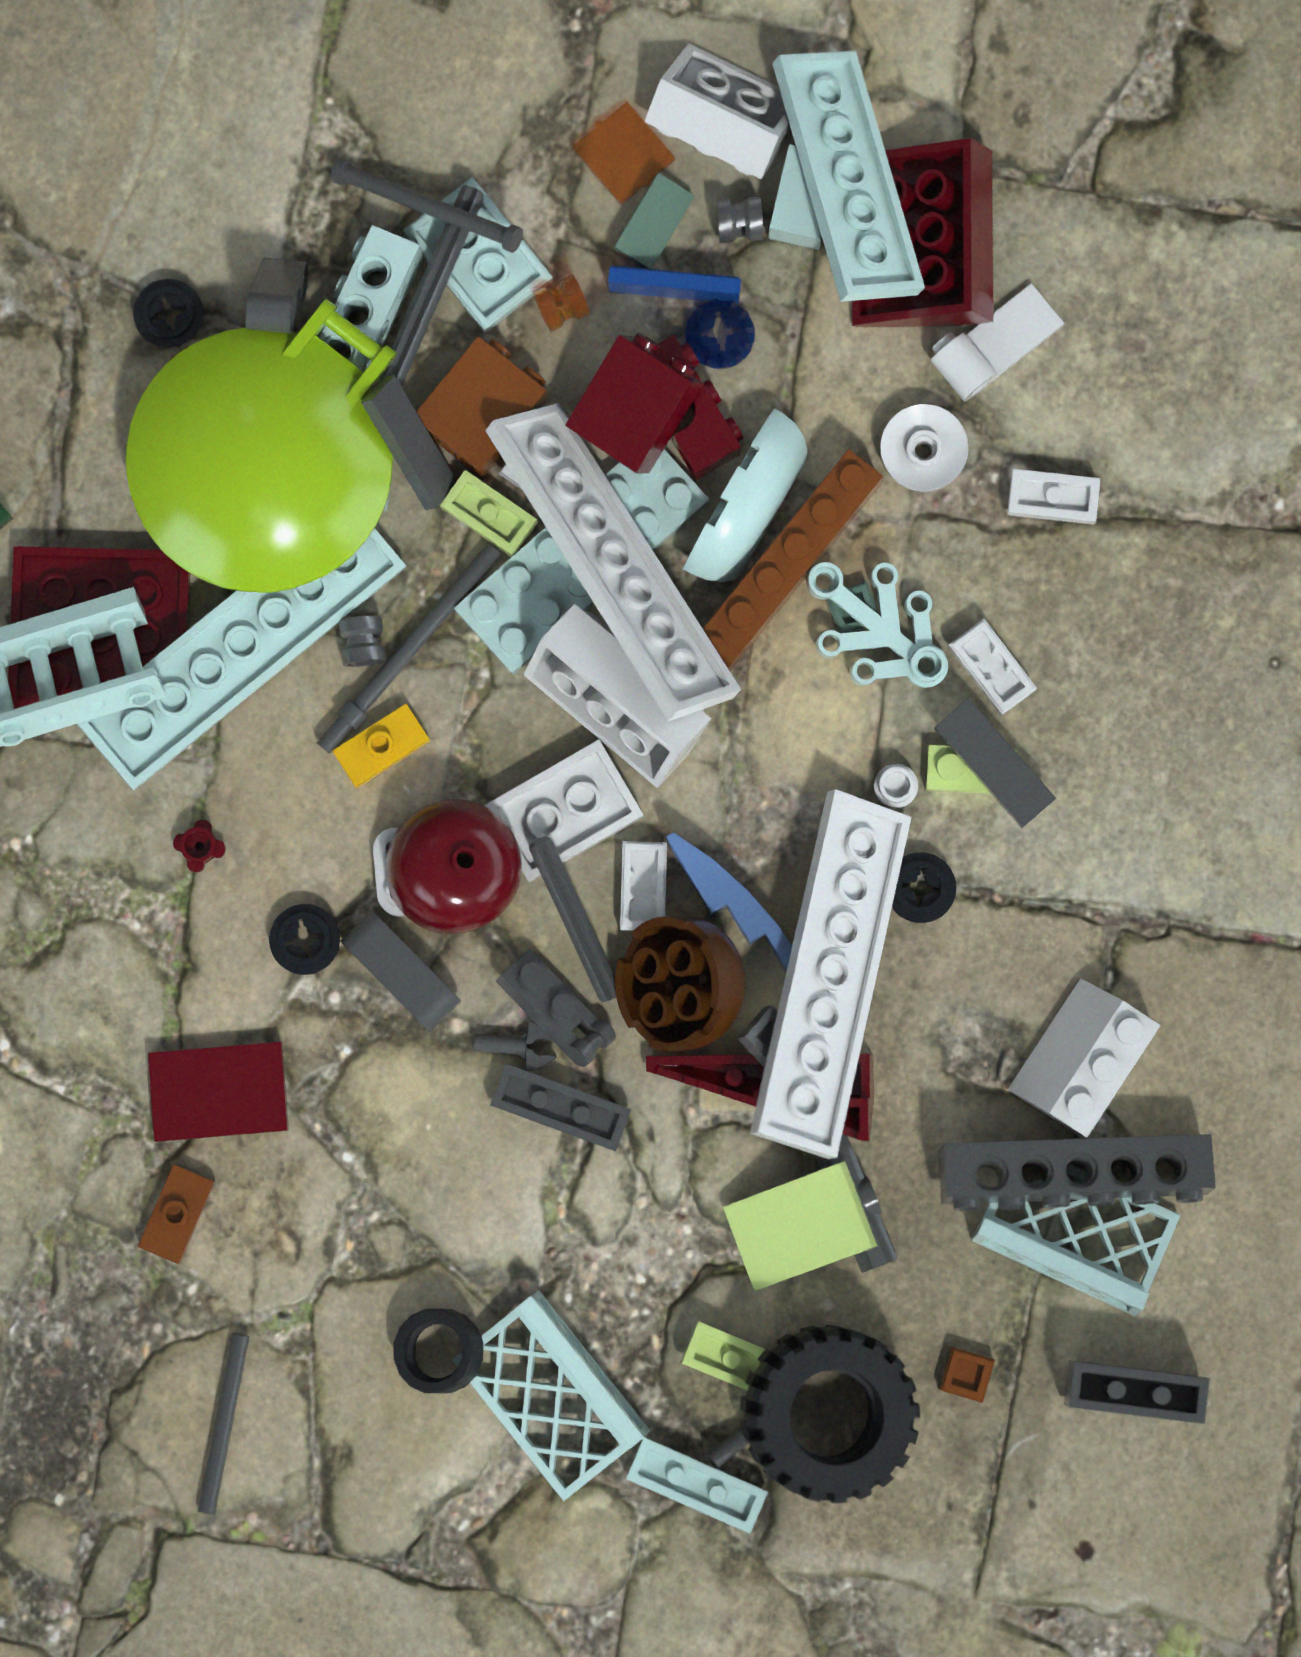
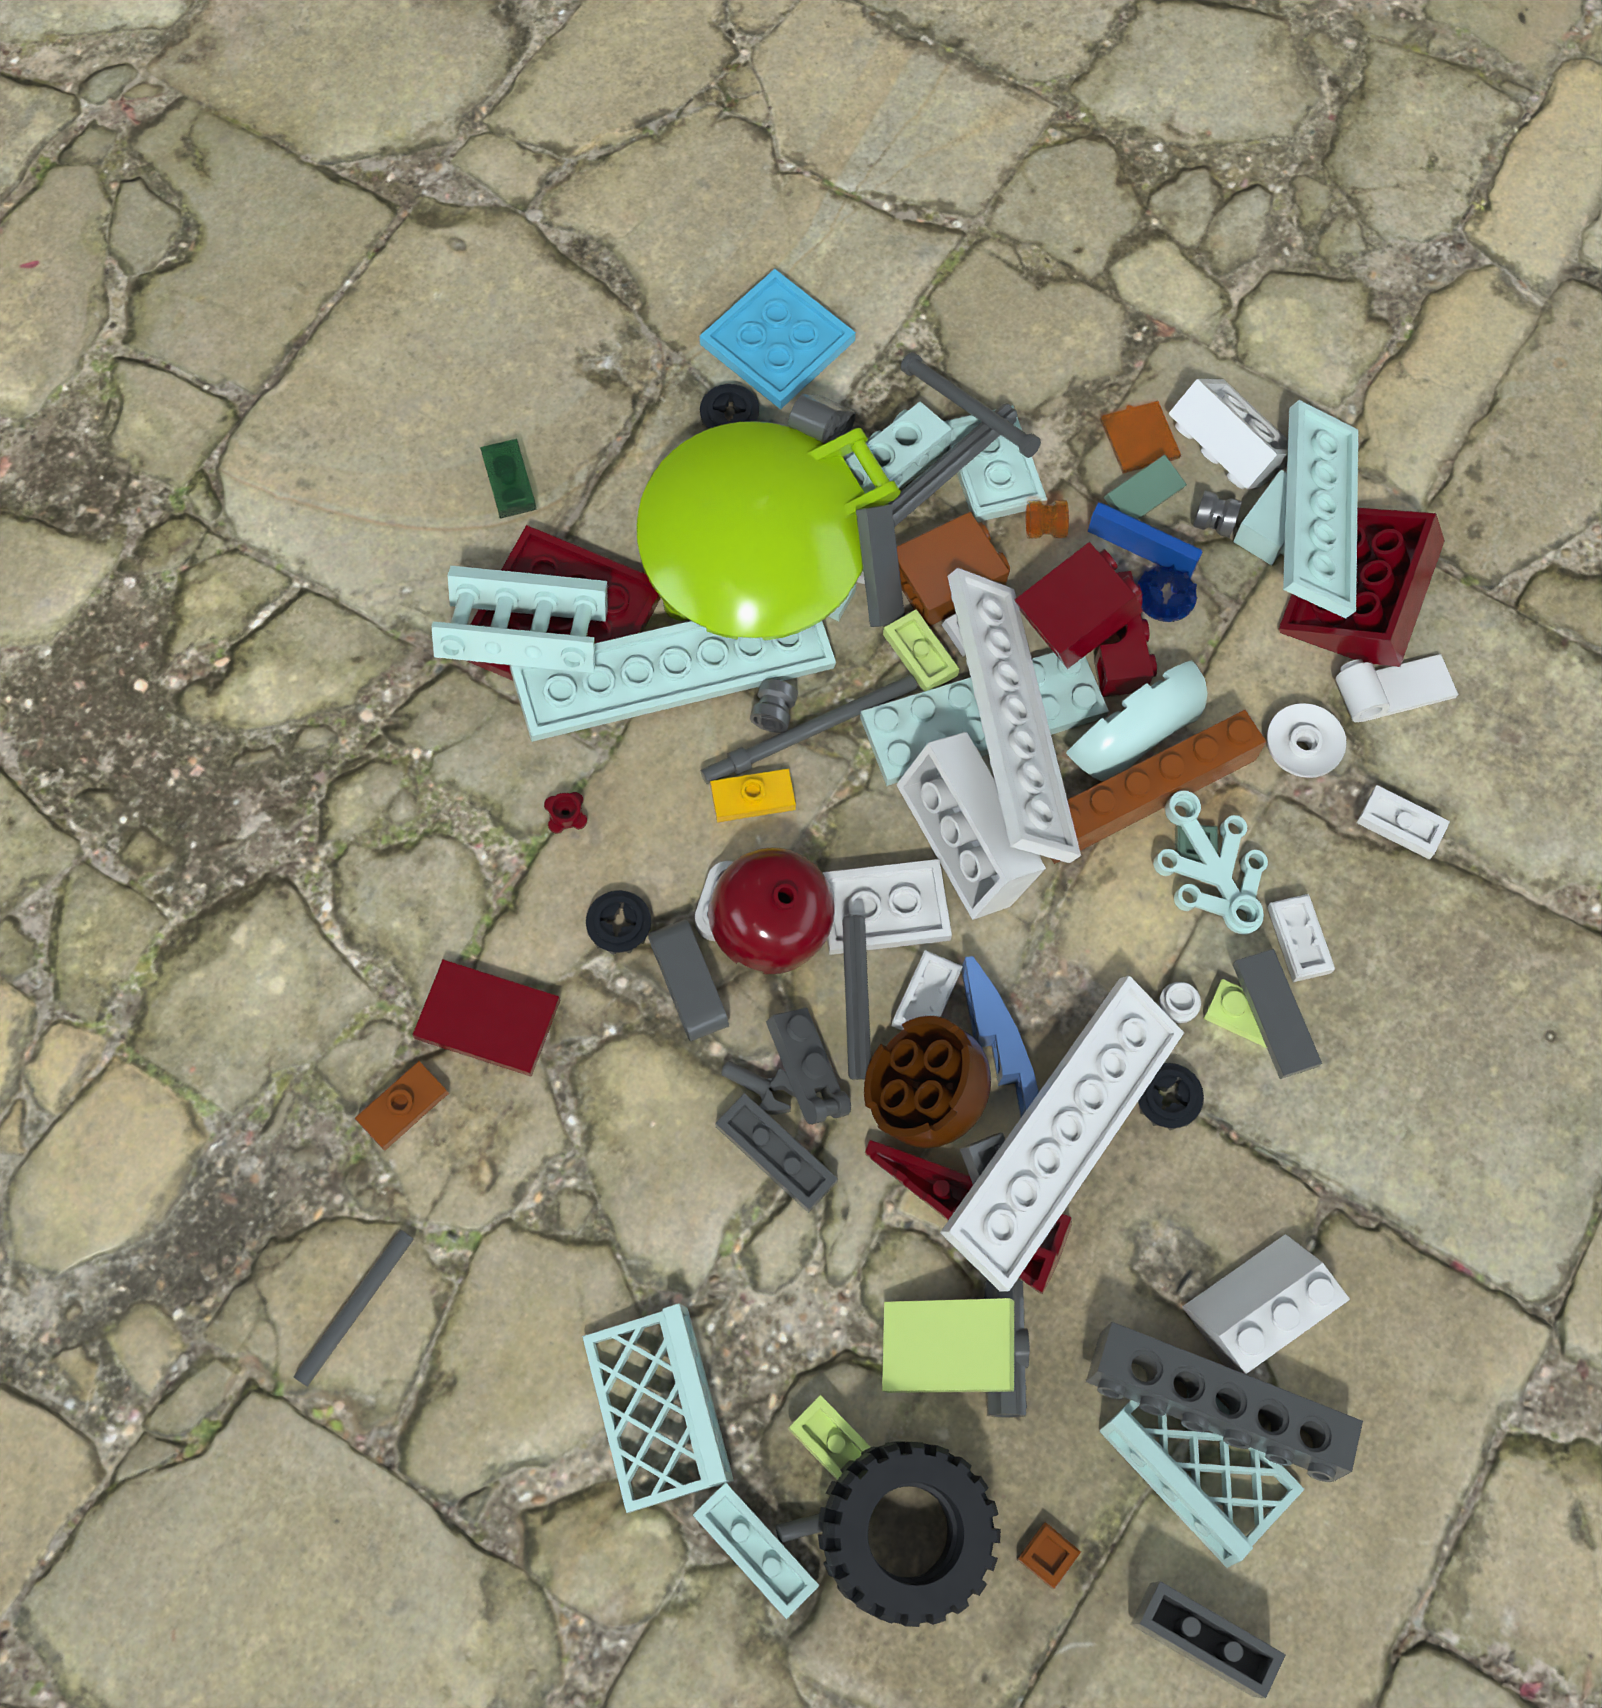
camera: 15 degrees right, 15 degrees down
(182, 202) = (777, 338): none -> medium azure plate
(405, 1351) = (552, 1299): black tyre -> none

